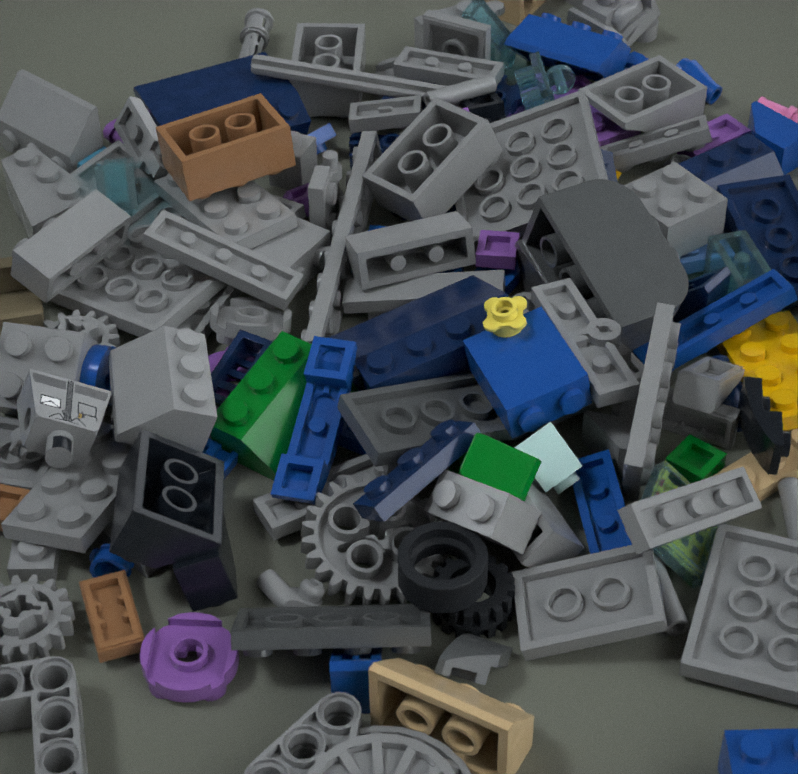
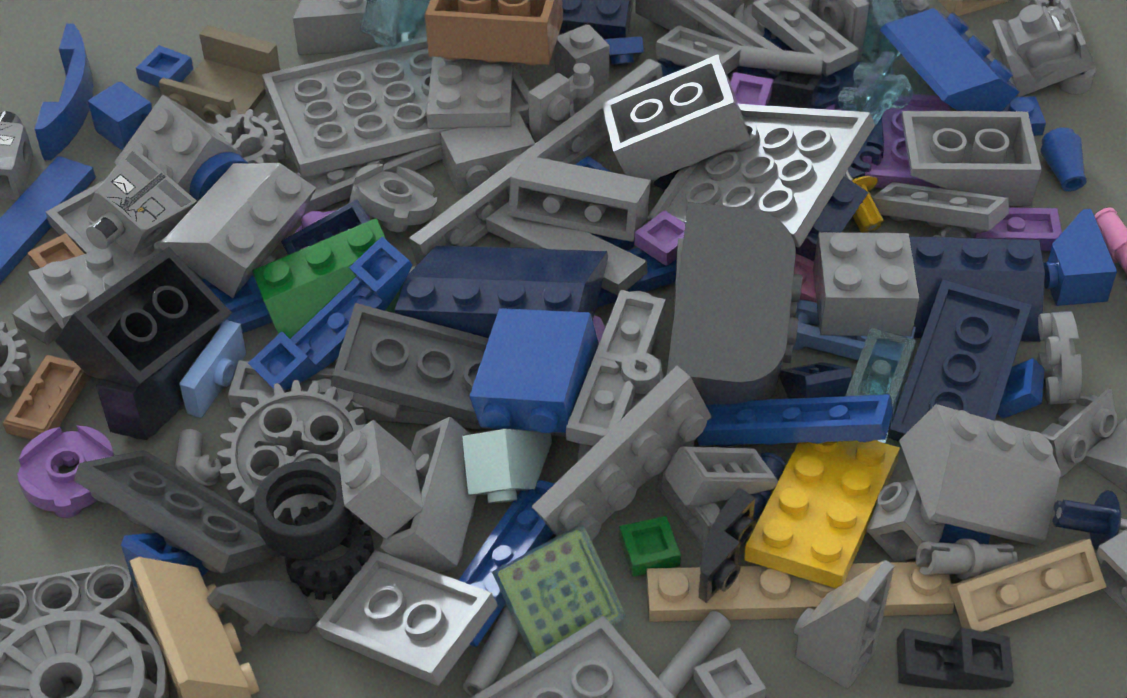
camera: 35 degrees right, 5 degrees up
(69, 245) = (302, 50): light grey brick -> none
(223, 259) = (408, 126): light grey plate -> none
(239, 519) = (213, 369): none -> light blue plate
(416, 470) = (353, 407): dark blue plate -> none
(497, 466) = (420, 442): green slope -> none
(505, 315) = (544, 304): light yellow plate -> none
(689, 509) = (561, 586): light grey plate -> none

